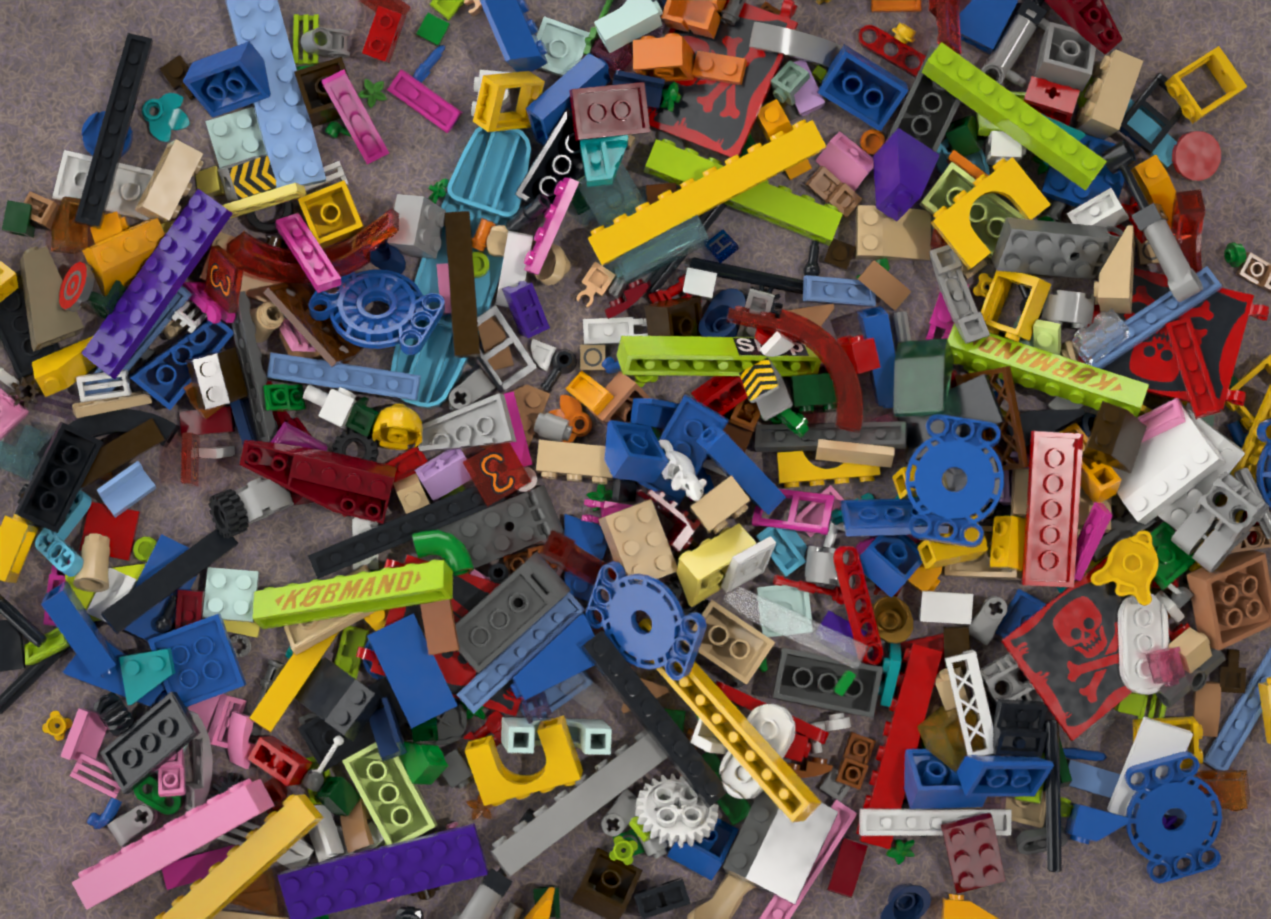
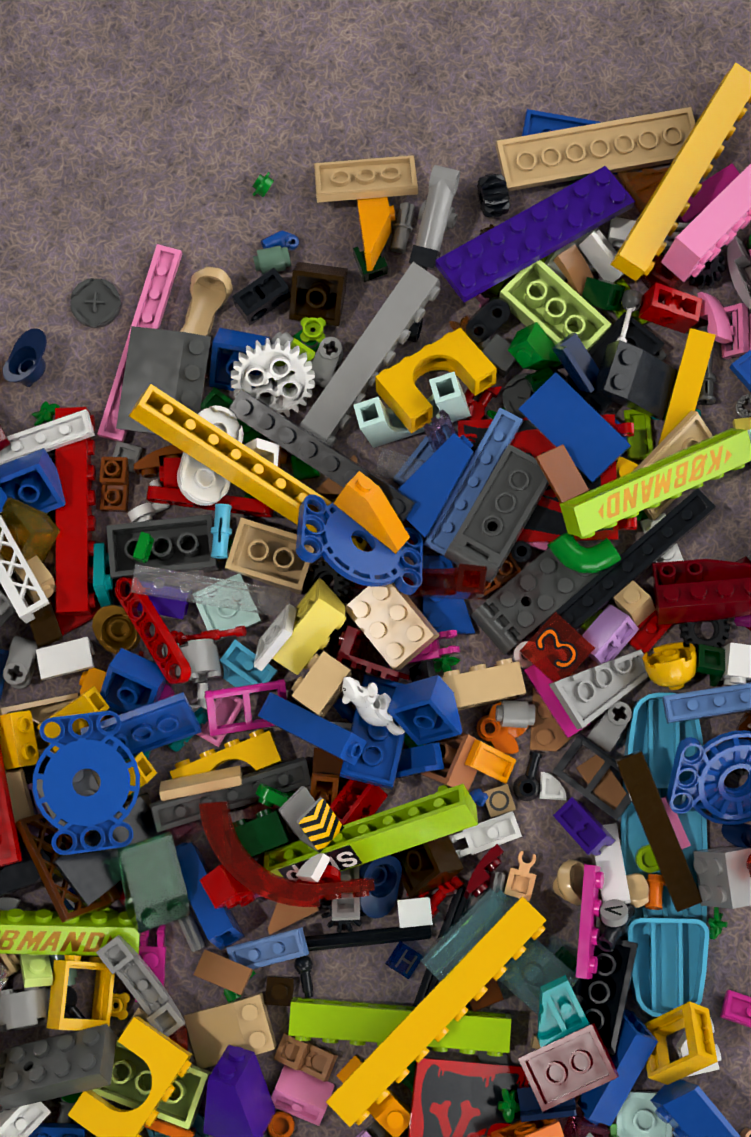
camera: 165 degrees right, 5 degrees down
(457, 806) = (486, 320): none -> black plate
(526, 225) = (614, 913): none -> light grey tile
(624, 649) = (370, 508): none -> light orange slope
(775, 660) = (221, 531): none -> medium azure pin
(847, 868) = (92, 381): dark red slope -> none

